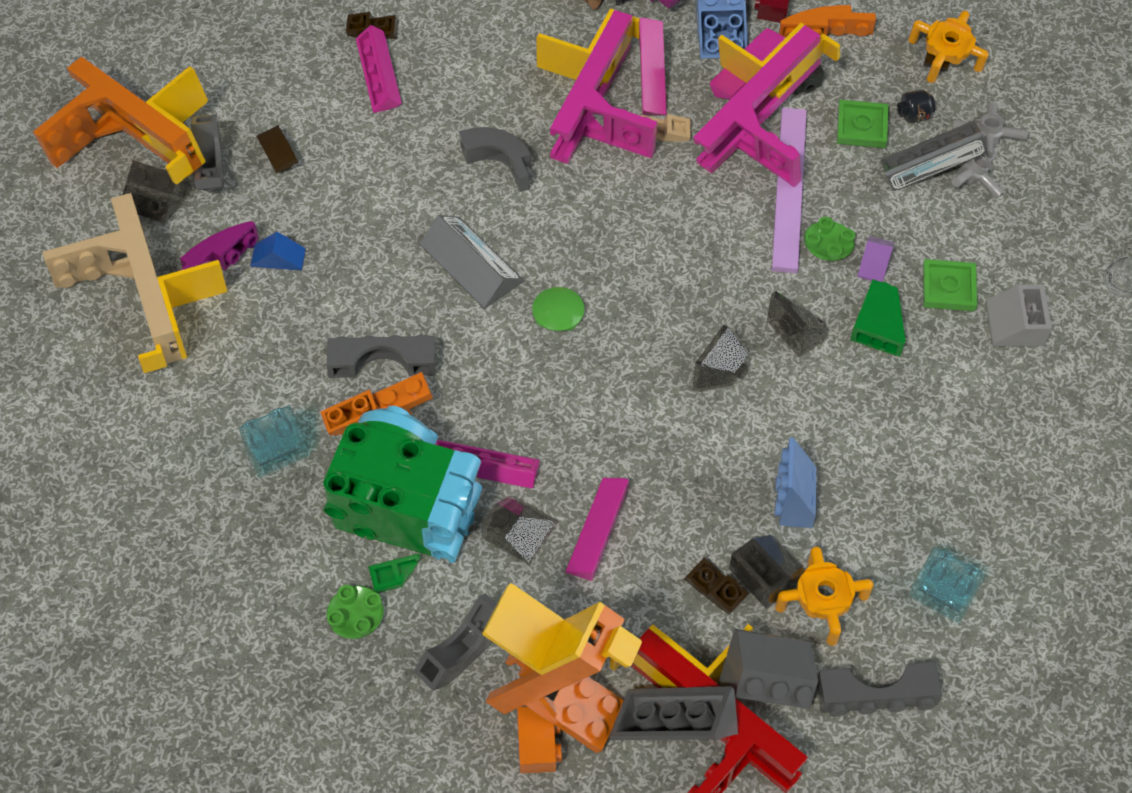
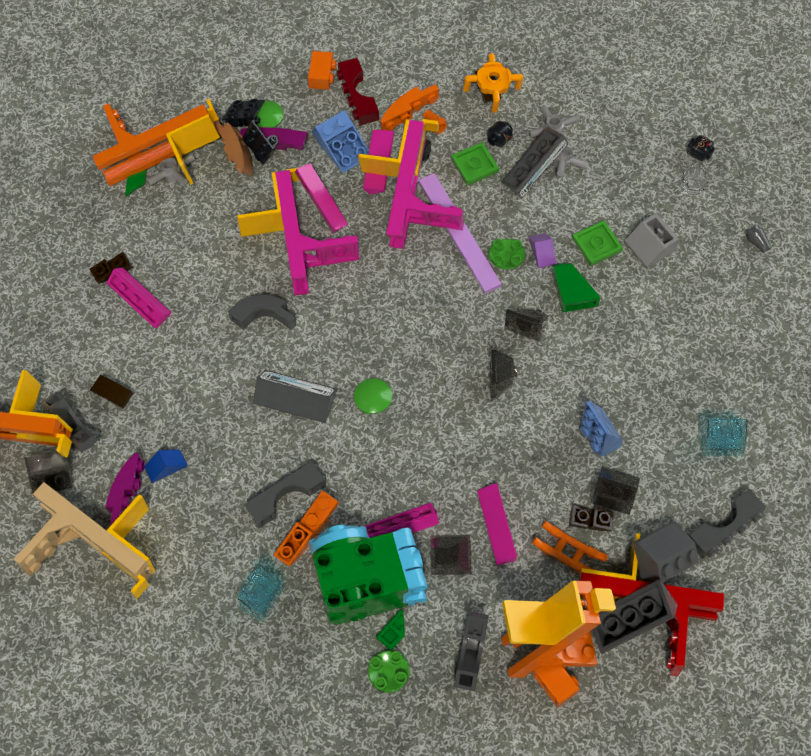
camera: 30 degrees left, 5 degrees up
(665, 589) = (563, 539): none -> orange piece
(672, 128) = (361, 229): tan slope -> none
(822, 606) = (657, 494): light orange plate -> none
(849, 57) = (429, 115): none -> orange cone

